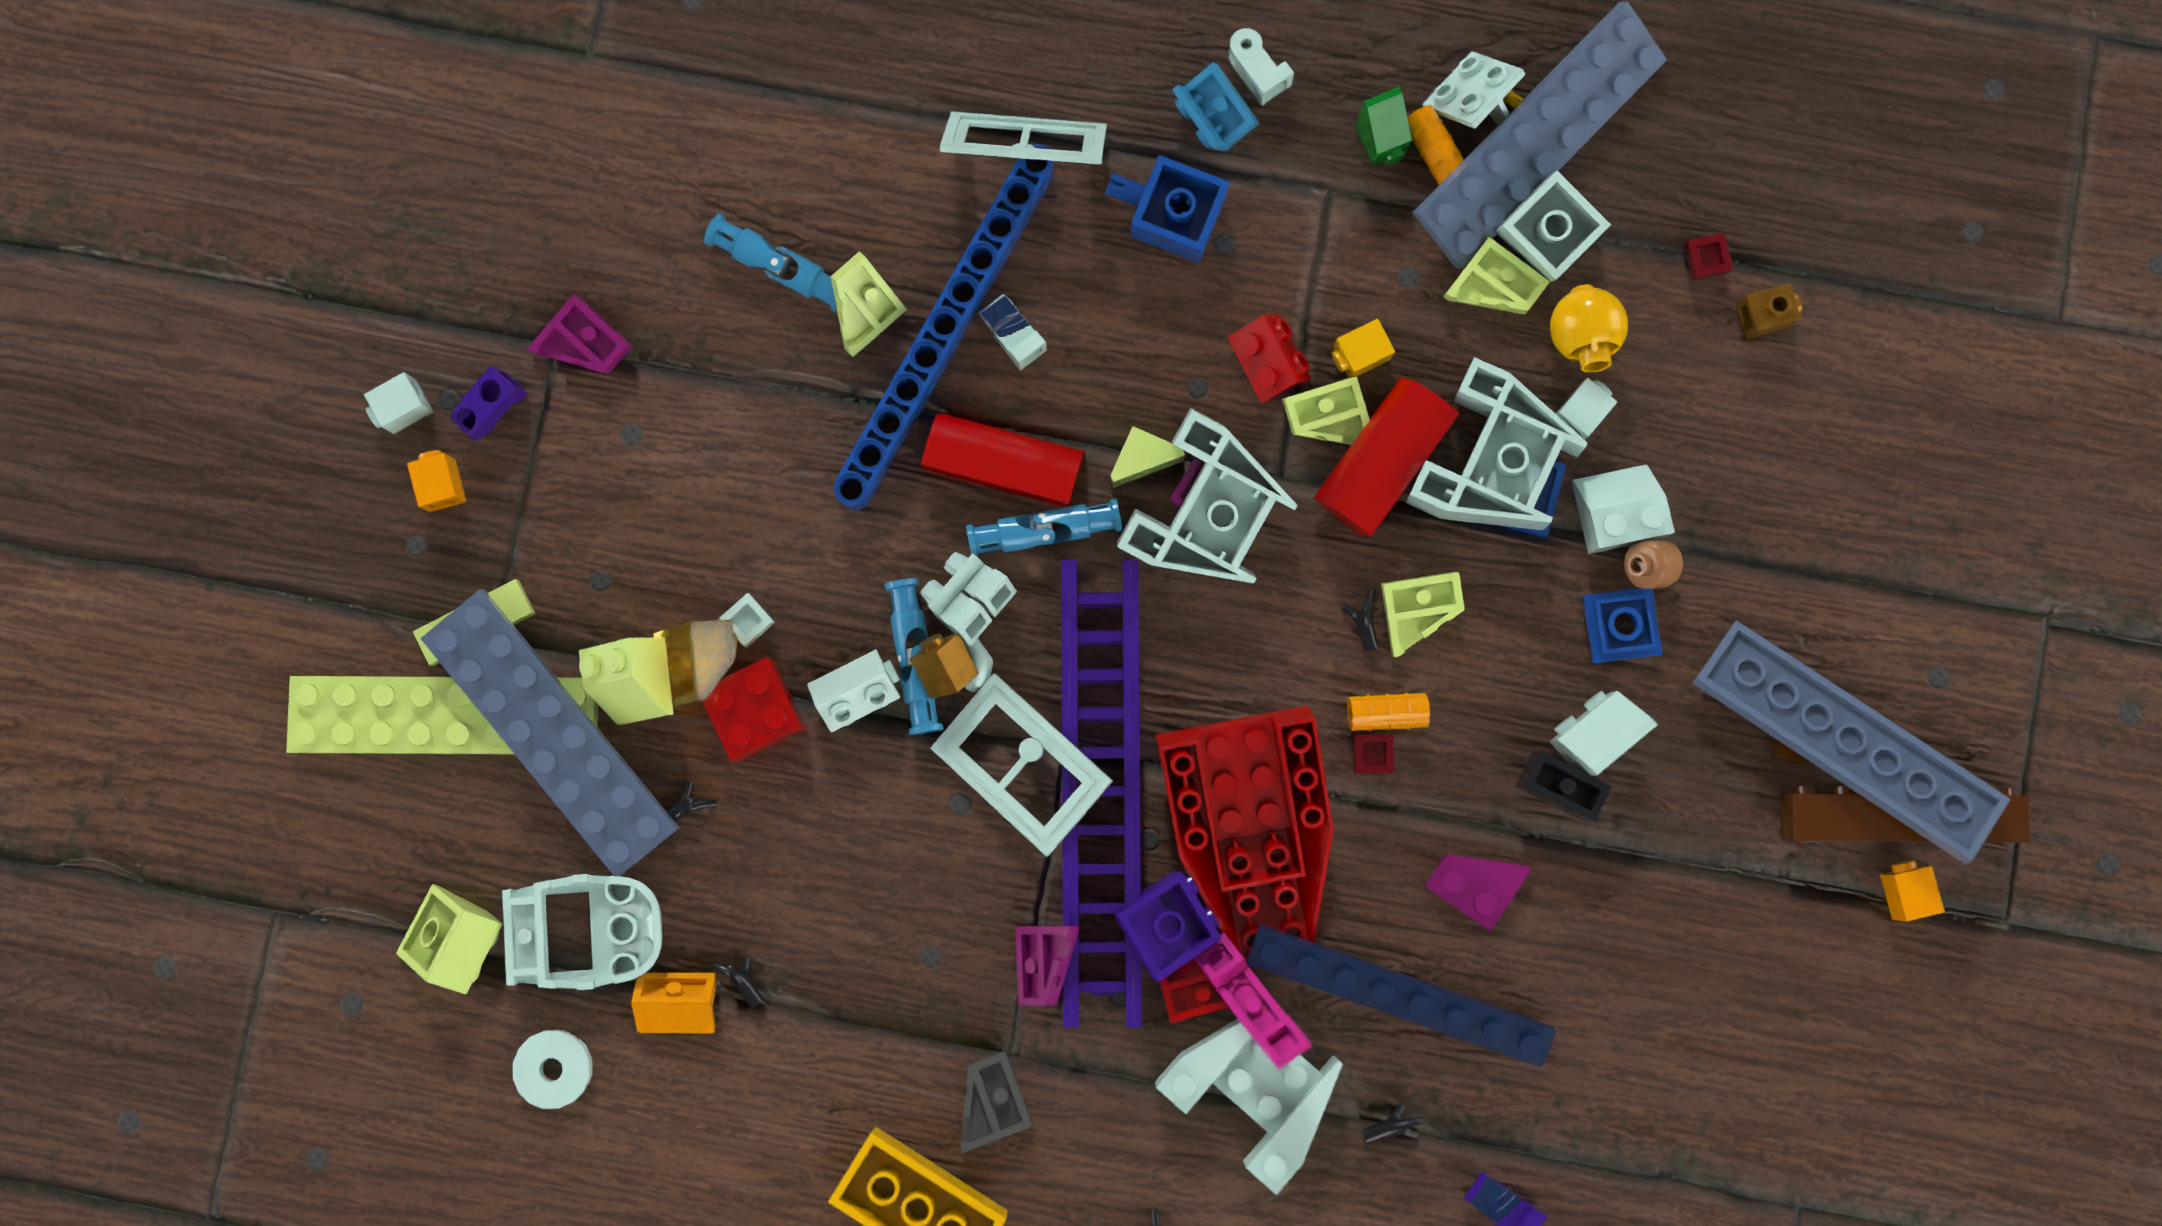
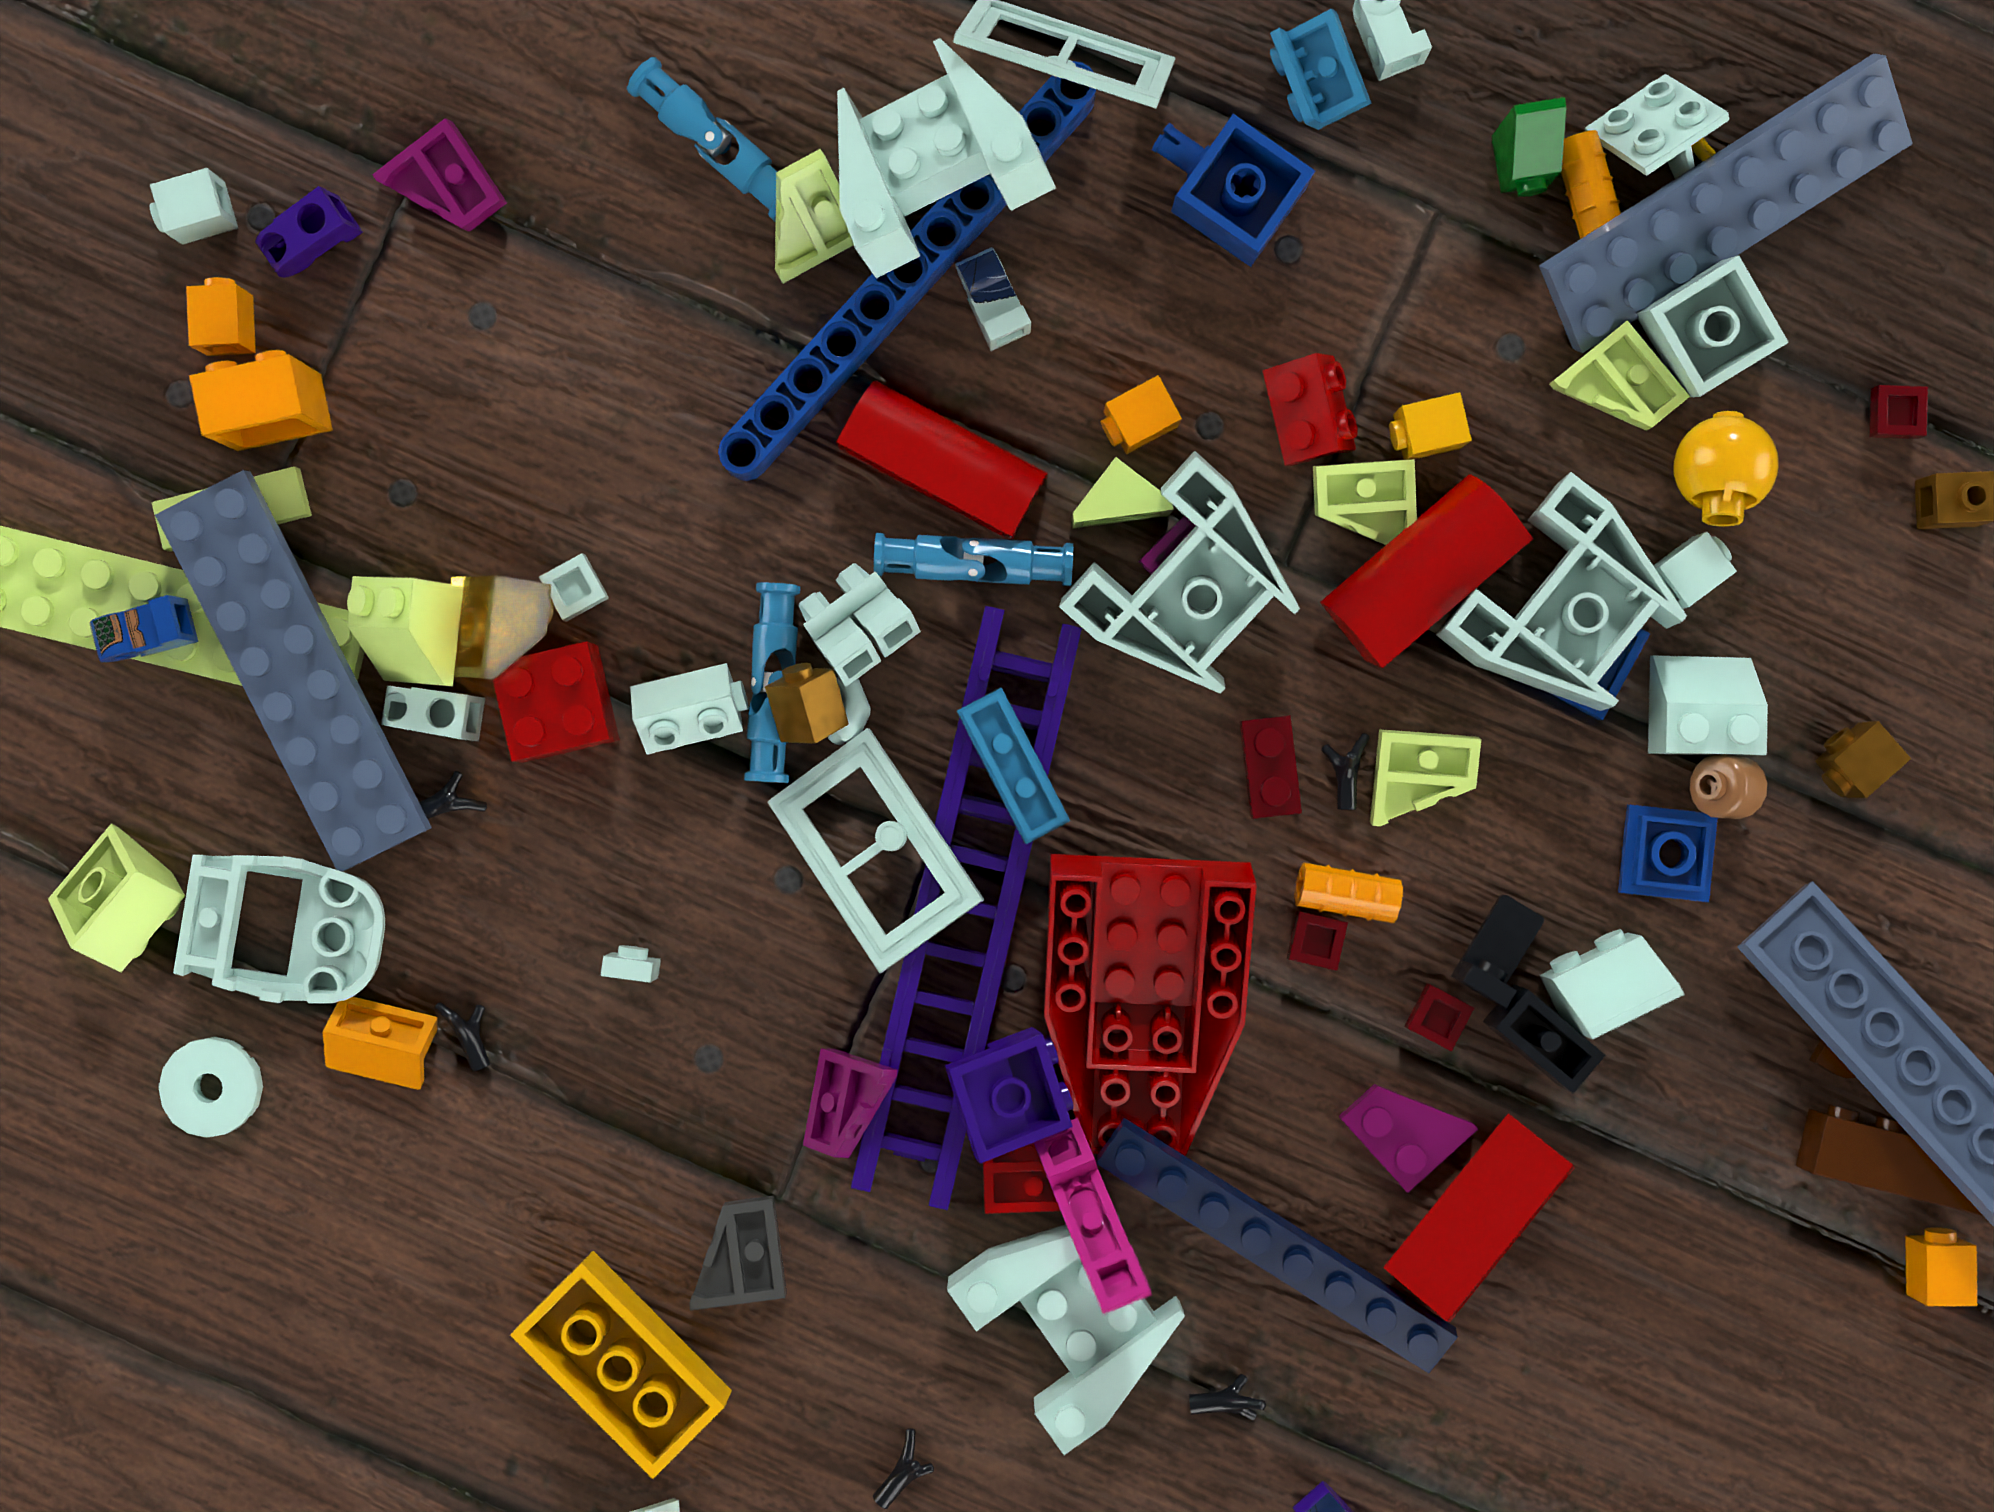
camera: 10 degrees right, 5 degrees up
(429, 727) = (144, 629): none -> blue leg
(481, 535) = (260, 401): none -> light orange piece
(661, 739) = (434, 712): none -> light aqua leg
(855, 895) = (631, 964): none -> light aqua plate
(937, 235) = (926, 151): none -> light aqua wedge
(1110, 674) = (1013, 766): none -> dark azure tile
(1143, 392) = (1140, 415): none -> light orange brick
(1306, 631) = (1270, 767): none -> dark red plate
(1480, 790) = (1439, 1017): none -> dark red plate
(1512, 728) = (1498, 950): none -> black bracket
(1550, 936) = (1479, 1217): none -> red brick
(1747, 520) = (1860, 759): none -> pearl gold brick

